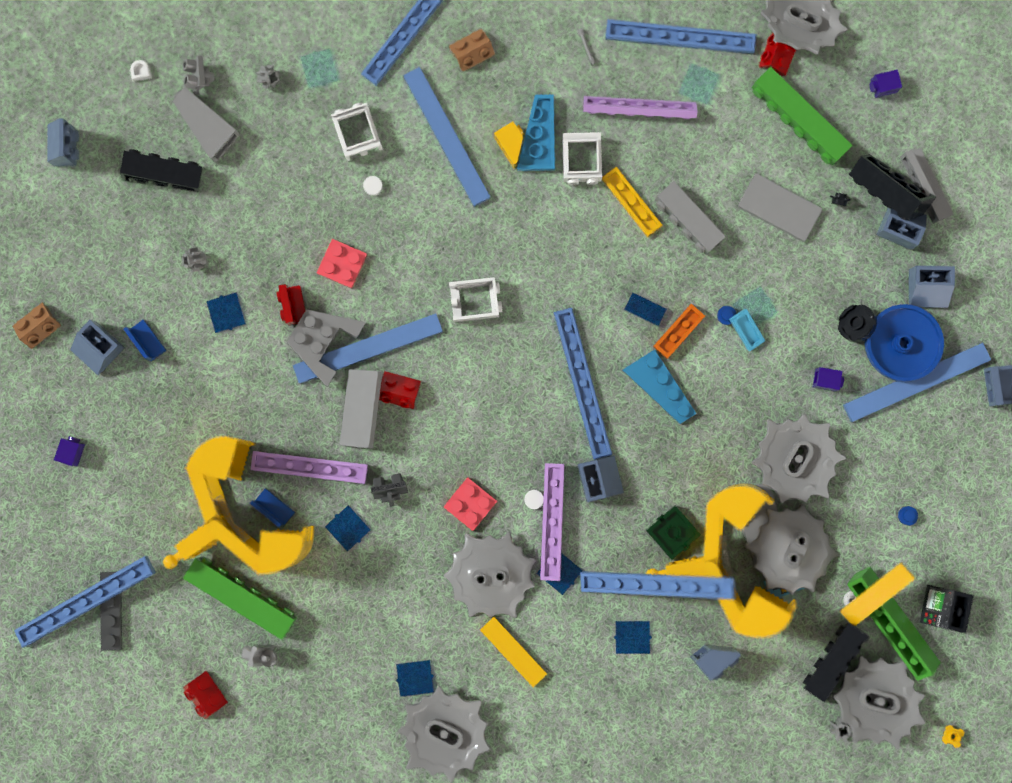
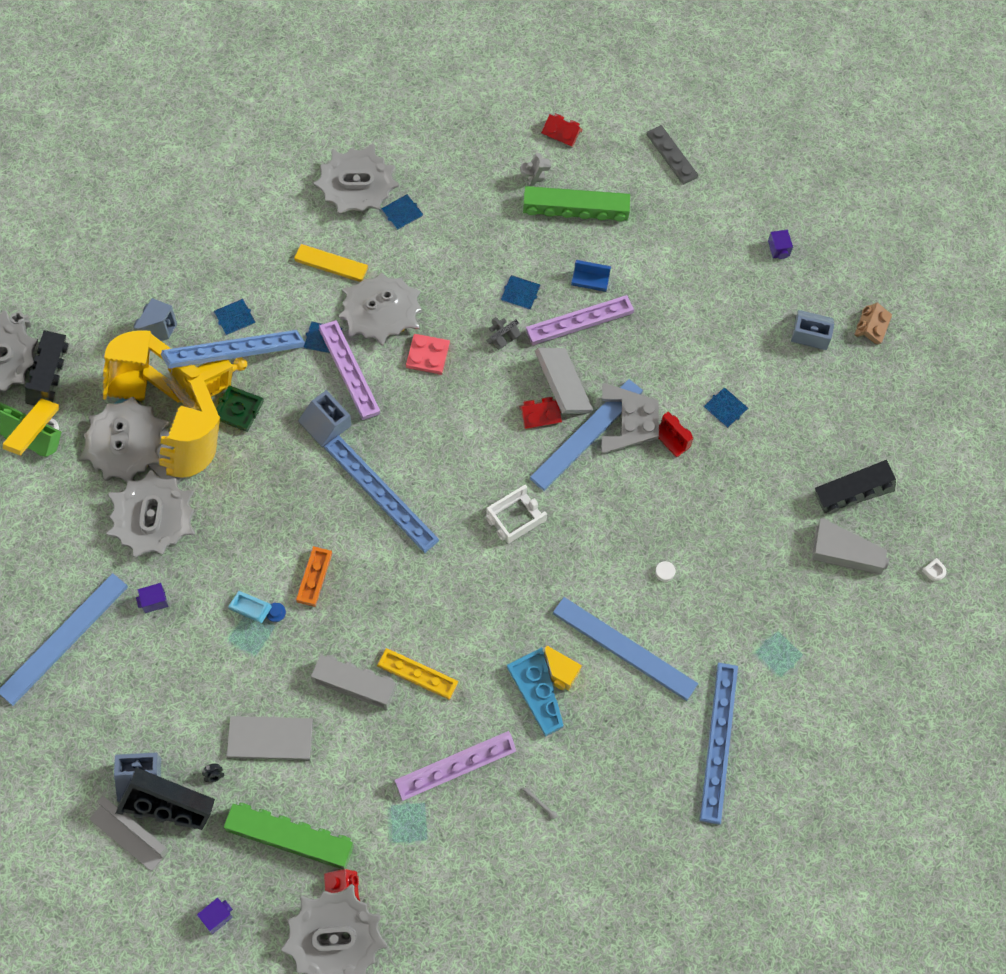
camera: 145 degrees right, 20 degrees down
(62, 143) = (954, 470): sand blue slope -> none
(85, 601) = (694, 149): medium blue tile -> none
(145, 340) = (778, 351): blue panel -> none
(194, 259) = (779, 432): light grey gear -> none
(200, 77) = (877, 578): light grey hips -> none
(221, 459) = (657, 269): yellow piece -> none
(268, 76) = (819, 617): light grey gear -> none
(341, 263) = (652, 492): coral plate -> none
(363, 147) = (719, 628): white window -> none
(472, 49) = (648, 741): medium nougat bracket -> none
(534, 499) = (375, 381): white tile -> none
(575, 177) = (493, 705): white window -> none
(645, 309) = (356, 582): clear blue tile -> none
(659, 384) = (313, 525): dark azure wing -> none
(680, 36) = (450, 861): medium blue tile -> none
(857, 323) = (145, 660): black tile -> none
(905, 343) = (91, 662): blue dish -> none
(908, 515) = (26, 517): blue plate -> none
(931, 286) = (86, 731): sand blue slope -> none

